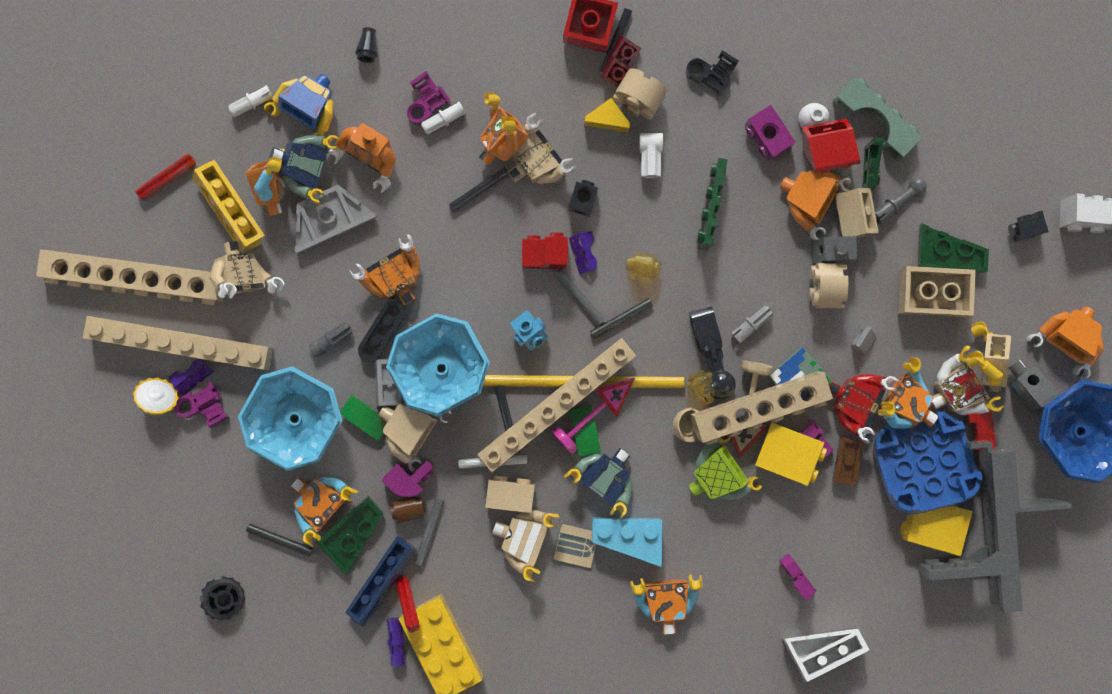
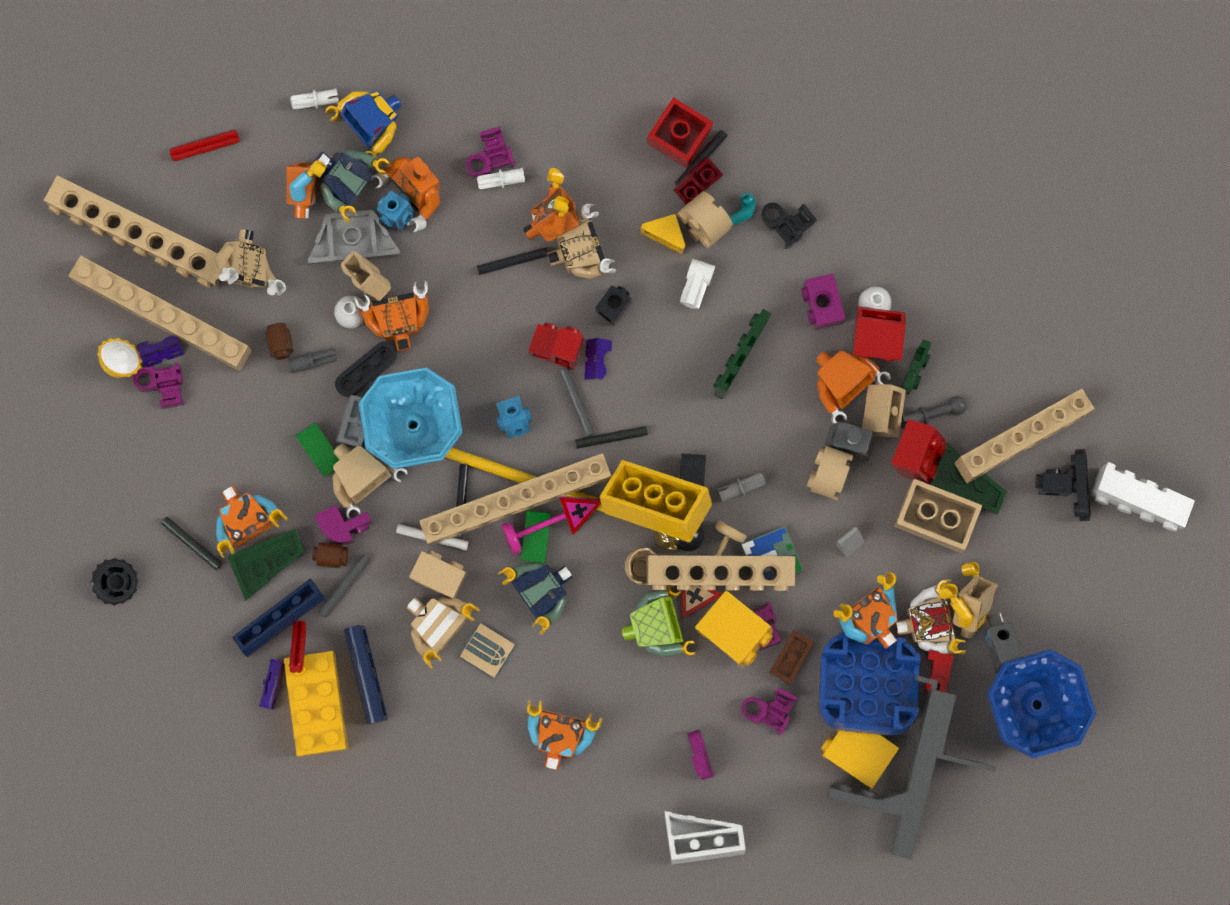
camera: 20 degrees right, 5 degrees down
(228, 206) = (256, 194): yellow brick -> none
(269, 413) = (234, 403): medium azure rock -> none
(295, 332) = (279, 341): none -> reddish brown brick
(346, 285) = (348, 313): none -> white brick
(352, 247) = (365, 276): none -> tan brick
(358, 178) = (395, 210): none -> dark azure brick
(367, 48) = (449, 84): black cone -> none
(476, 605) = (365, 674): none -> dark blue brick
(630, 536) = (544, 657): medium azure wedge -> none
(643, 267) = (651, 393): clear yellow head -> none
(671, 72) = (745, 210): none -> teal arm
(684, 364) = (656, 500): none -> yellow brick
(849, 517) = (775, 713): none -> magenta piece
(859, 401) = (822, 598): red torso -> none
(898, 136) = (924, 297): sand green arch -> none
(902, 240) = (919, 451): none -> red brick
(989, 194) = (1024, 436): none -> tan brick
(1044, 202) = (1081, 485): none -> black plate
(1074, 335) = (1065, 608): orange torso -> none

